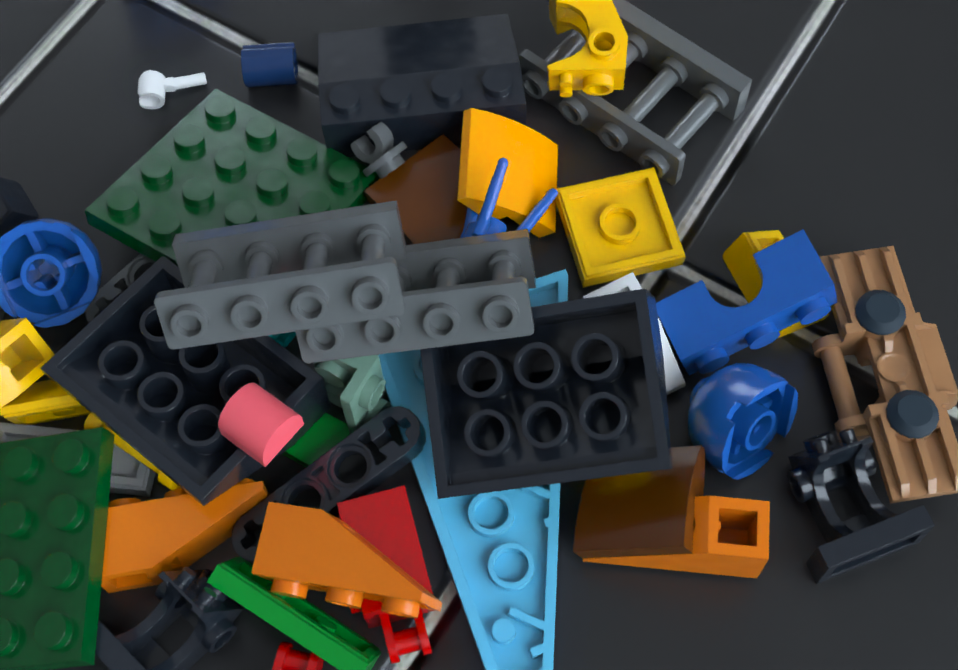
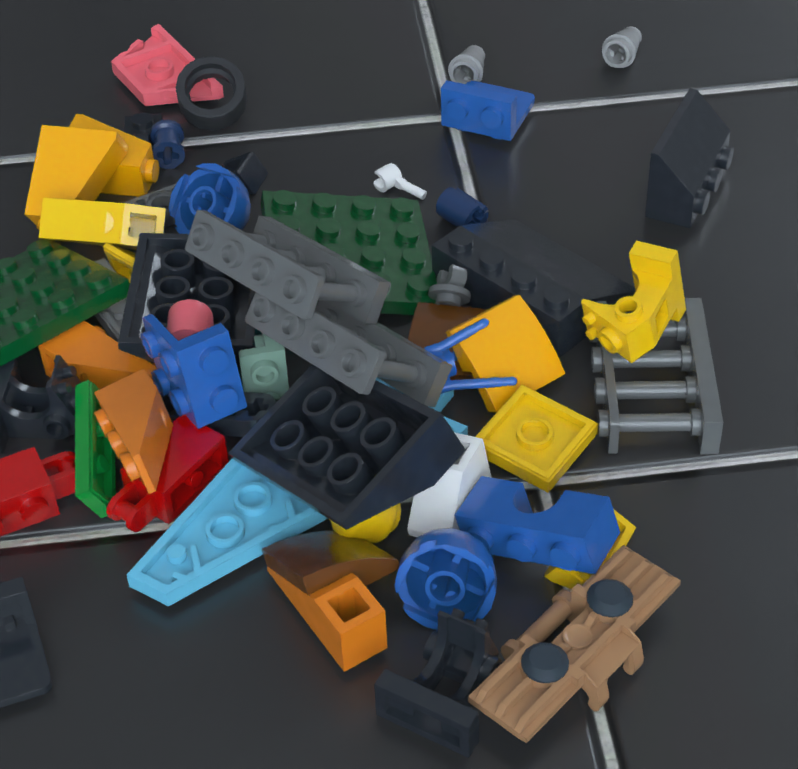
camera: 50 degrees right, 20 degrees down
(338, 474) = (195, 371): none -> blue bracket

